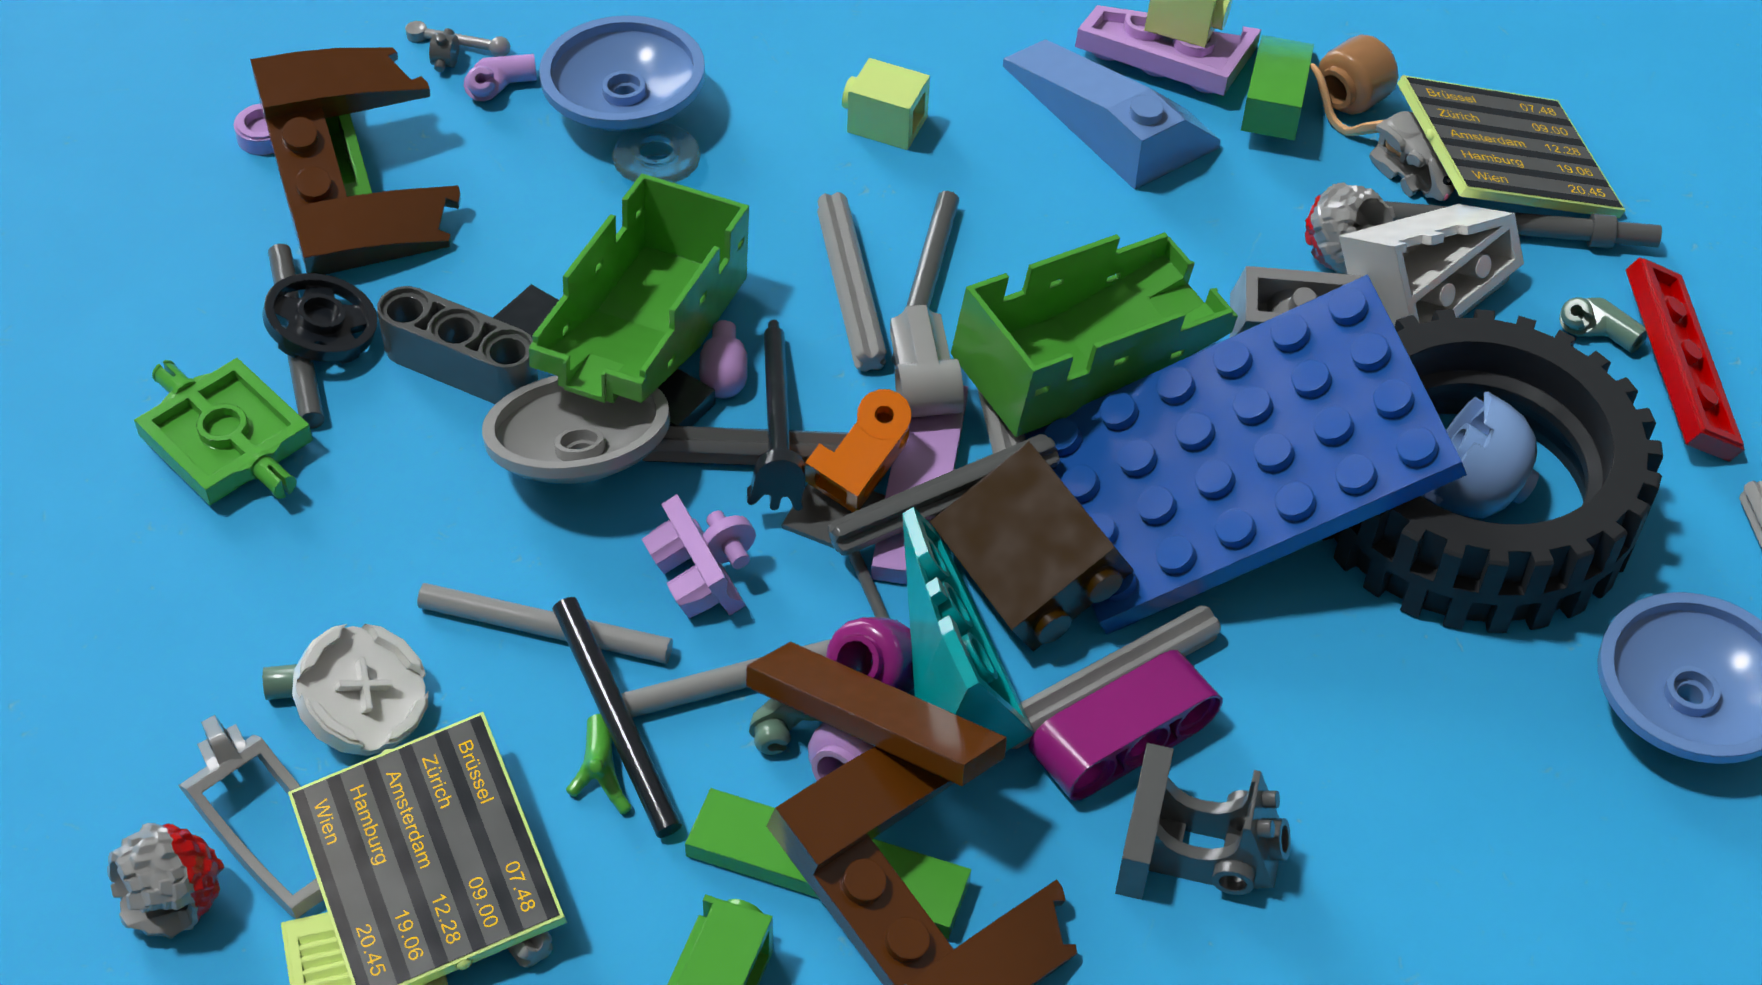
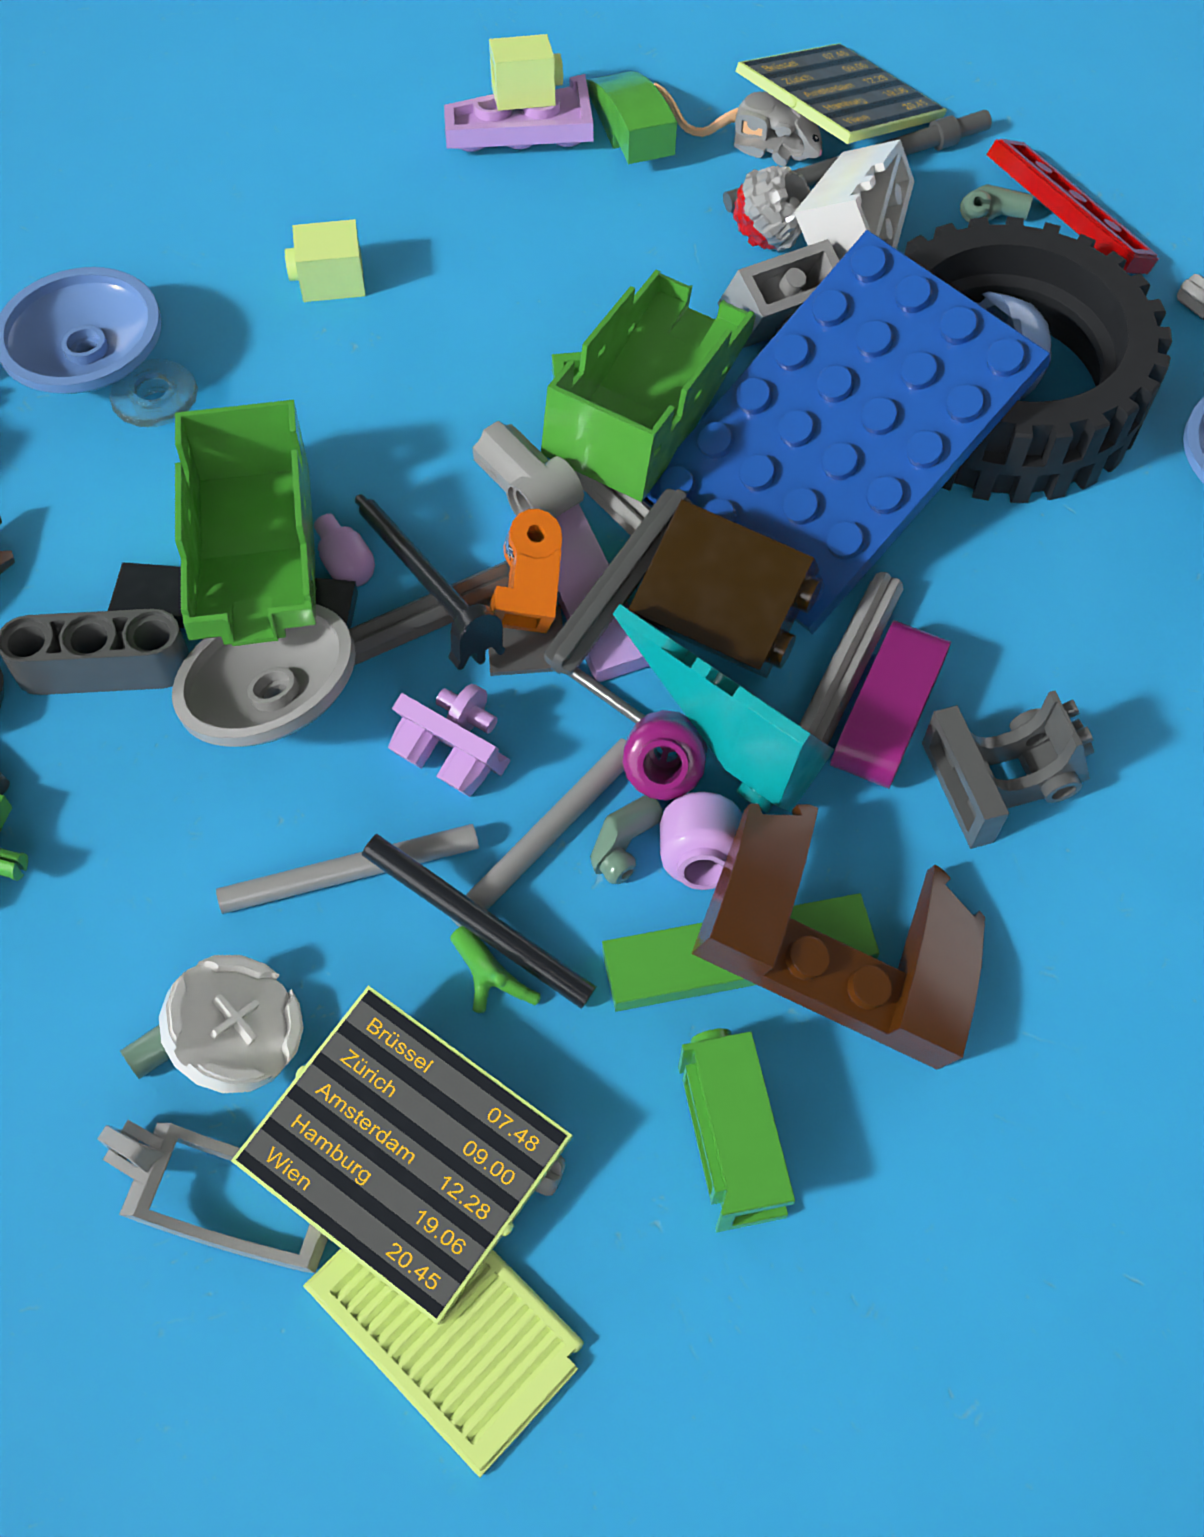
camera: 30 degrees left, 10 degrees up
(163, 879) = (171, 1317): light grey piece -> none
(851, 282) = (403, 431): light grey axle -> none
(877, 713) = (720, 803): reddish brown tile -> none
(933, 251) = (456, 387): dark grey bar -> none
(1115, 116) = (518, 192): medium blue wedge -> none
(1359, 73) = (691, 77): medium nougat head -> none

